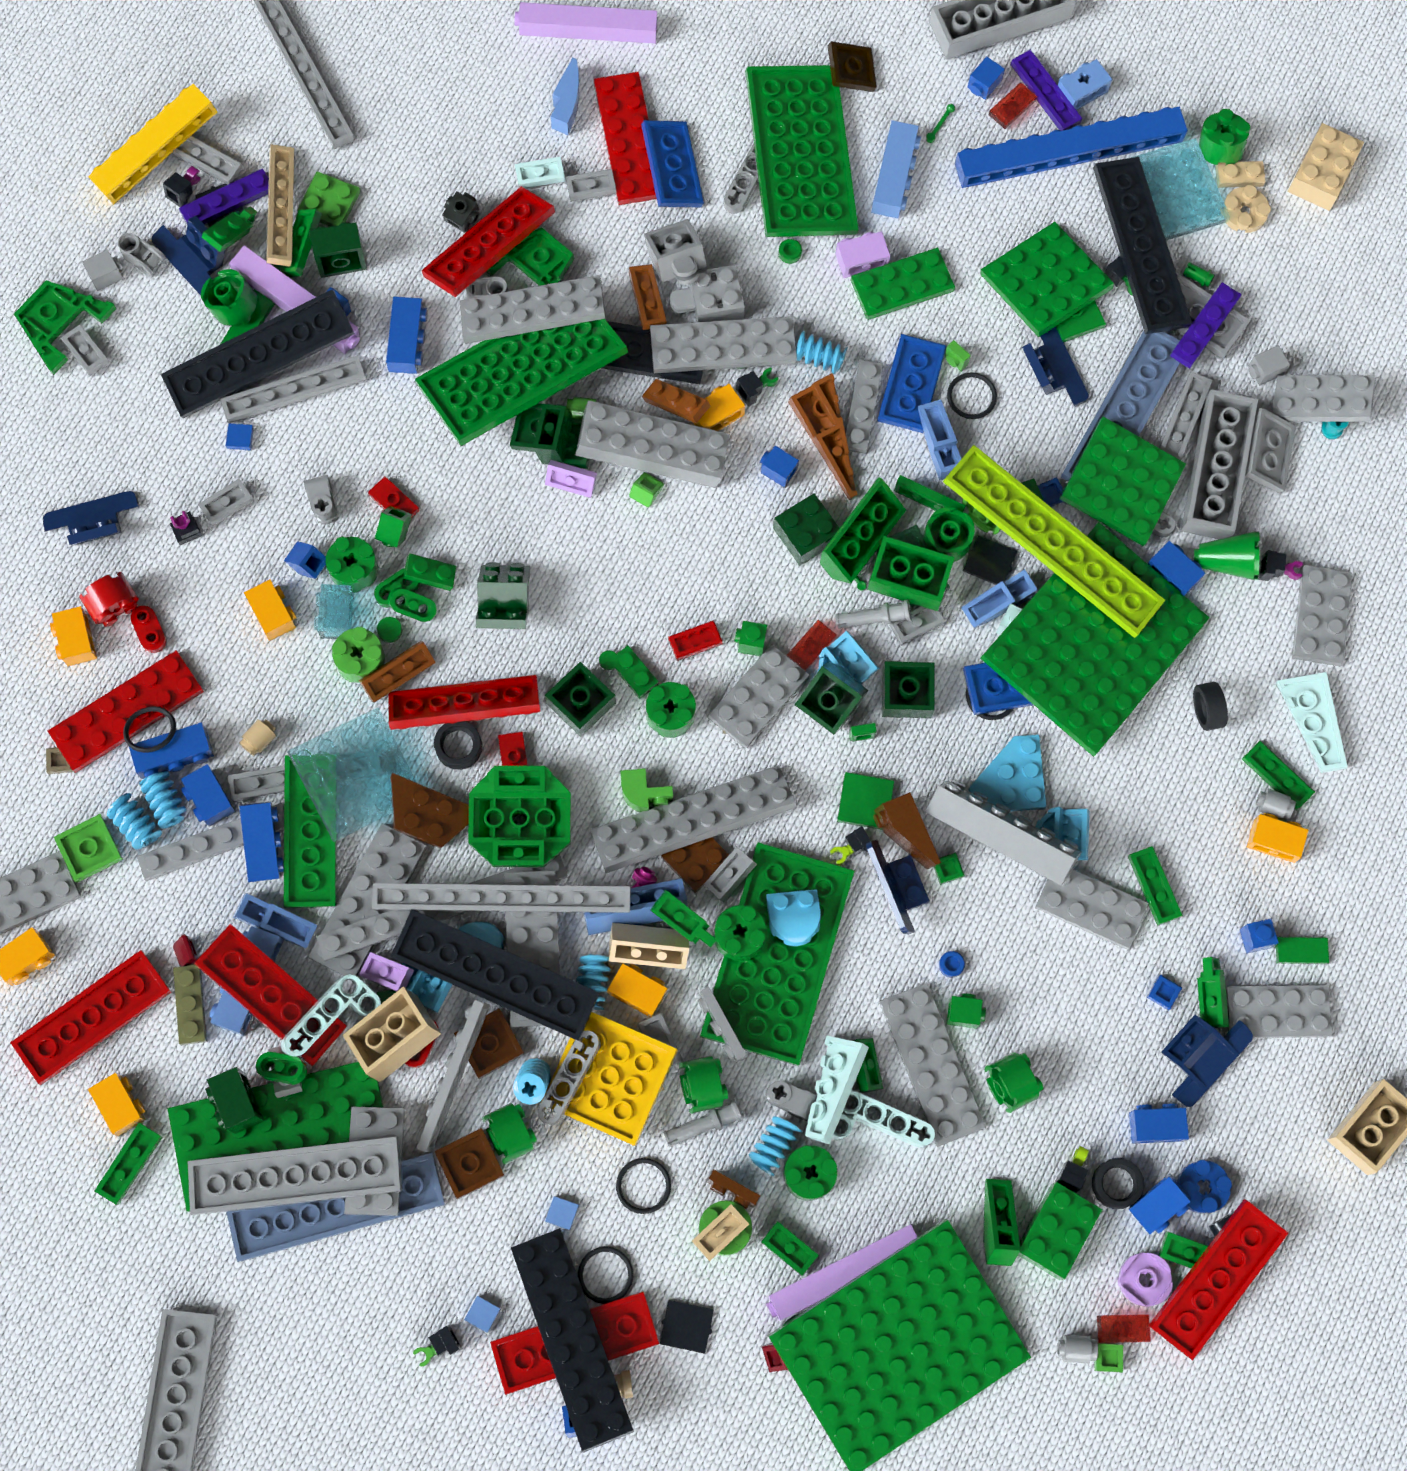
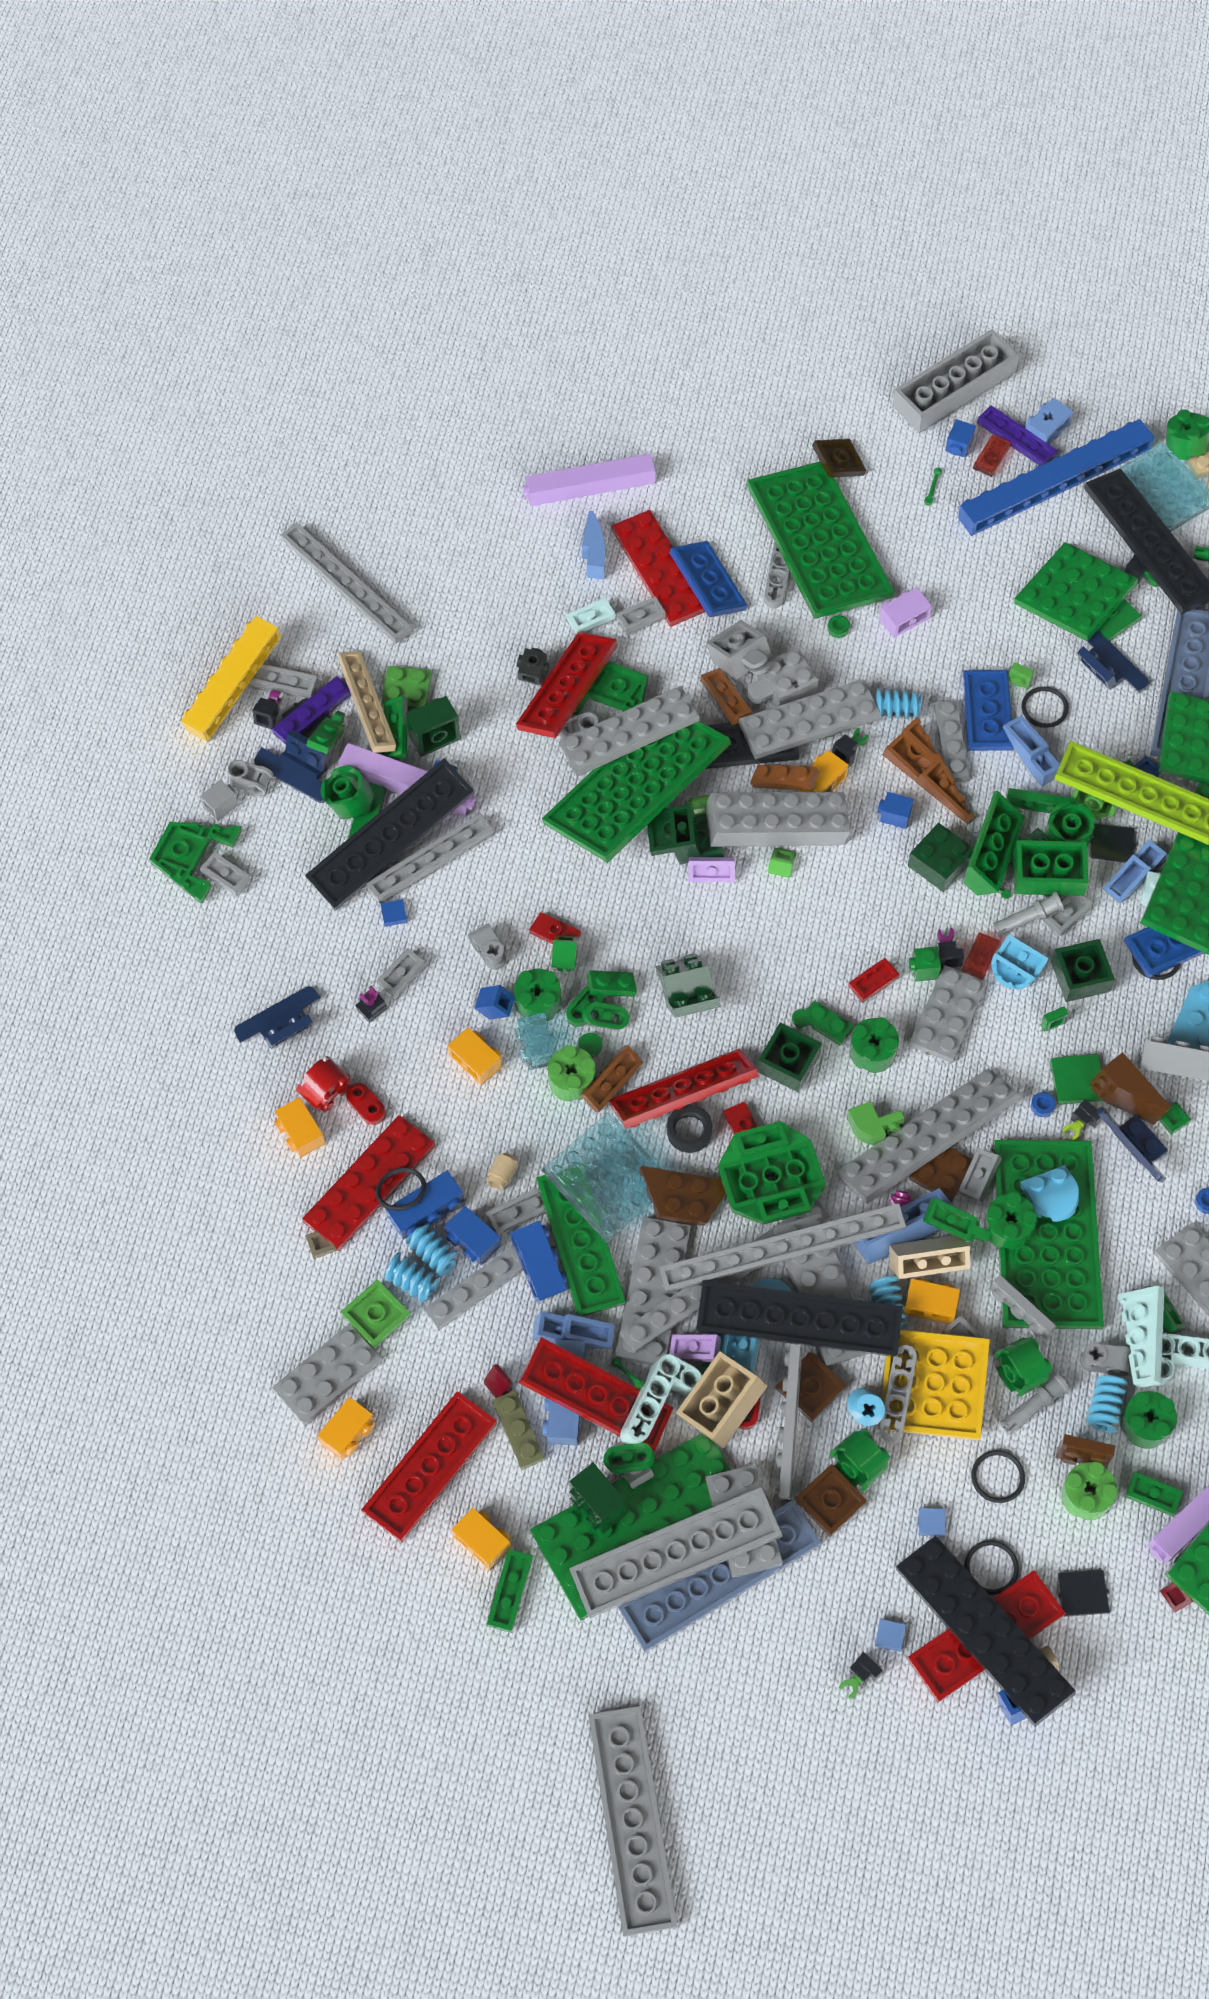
camera: 10 degrees left, 10 degrees down
(317, 994) = (638, 1382): none -> green hinge
(406, 335) = (518, 785): blue brick -> none
(720, 1232) = (1090, 1490): tan plate -> none
(779, 629) = (948, 951): none -> black piece
(821, 817) = (1043, 1104): none -> blue tile
(831, 697) = (1017, 994): dark green brick -> none
(895, 168) = (908, 534): medium blue brick -> none
(902, 283) = (948, 628): green plate -> none

